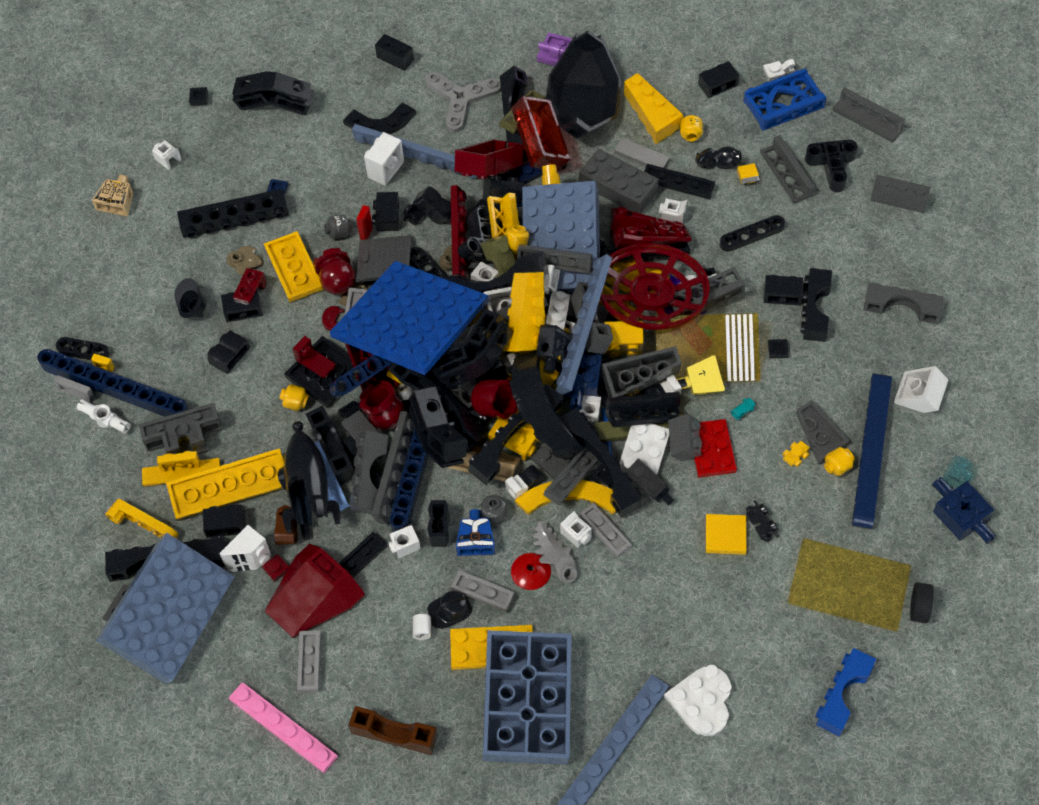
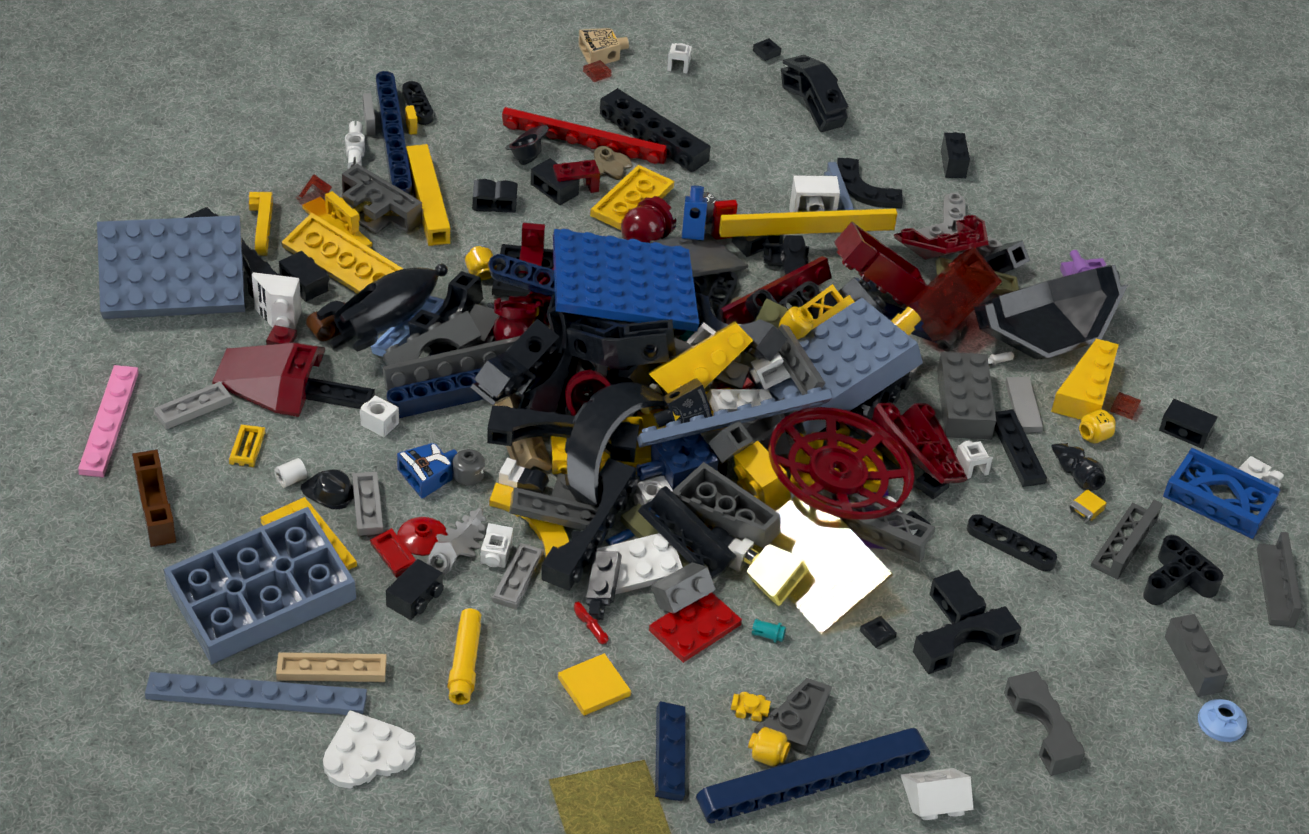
camera: 50 degrees right, 15 degrees down
(134, 470) = (315, 183): none -> clear red panel
(137, 214) = (597, 71): none -> clear red tile
(197, 394) = (428, 192): none -> yellow brick
(201, 264) = (585, 135): none -> red plate
(277, 184) = (717, 149): dark blue tile -> none
(351, 238) = (694, 221): none -> blue torso
(384, 654) = (243, 459): none -> yellow tile
(409, 176) = (806, 222): none -> yellow tile
(438, 523) = (418, 429): black brick -> none
(491, 102) = (970, 233): none -> dark red wedge
(537, 597) = (393, 552): none -> red tile
(583, 600) = (414, 589): none -> black brick
(592, 147) = (999, 358): none -> white piece
(619, 687) = (331, 667): none -> tan plate
(662, 509) = (592, 624): none -> red piece
(675, 608) = (463, 675): none -> yellow piece
(679, 101) = (1125, 405): none -> clear red tile
(758, 514) = (639, 707): black hinge -> none
(806, 519) = (670, 751): none -> dark blue plate
(946, 216) = (1221, 727): none -> light blue piece

